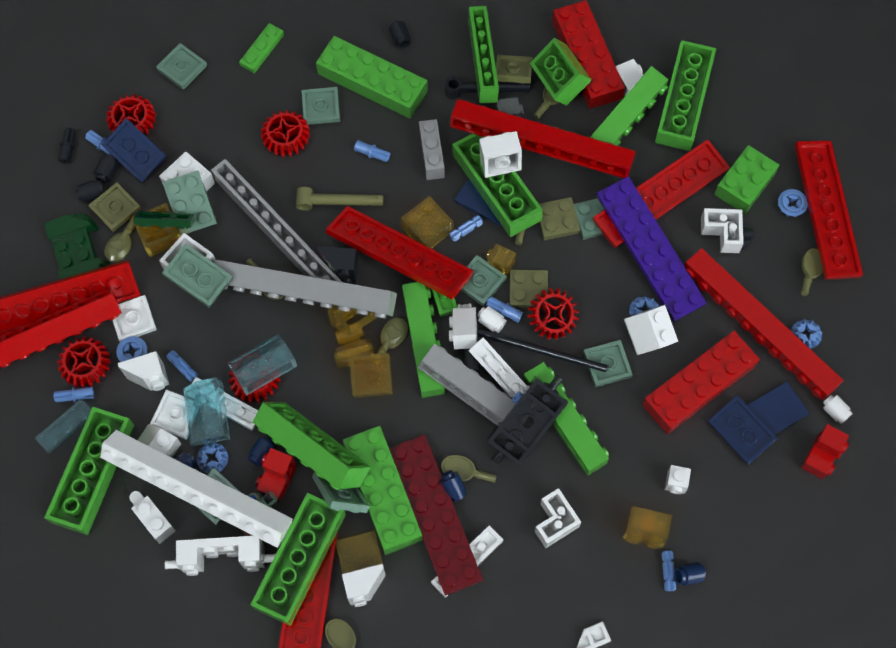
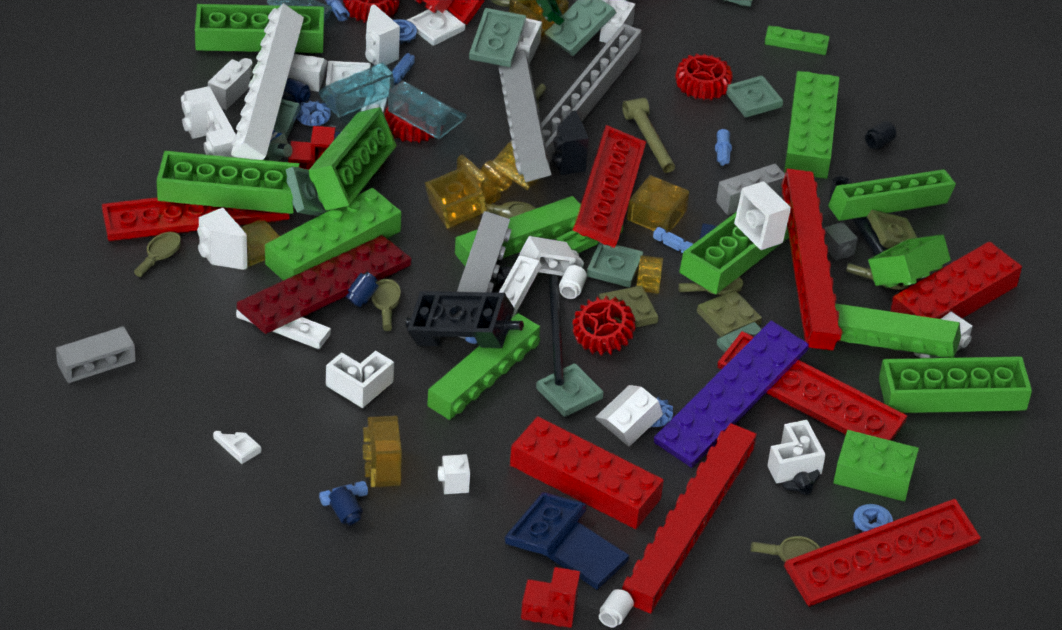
camera: 65 degrees right, 25 degrees down
(505, 309) = (591, 289): medium blue axle -> none
(814, 339) = (699, 572): medium blue gear -> none

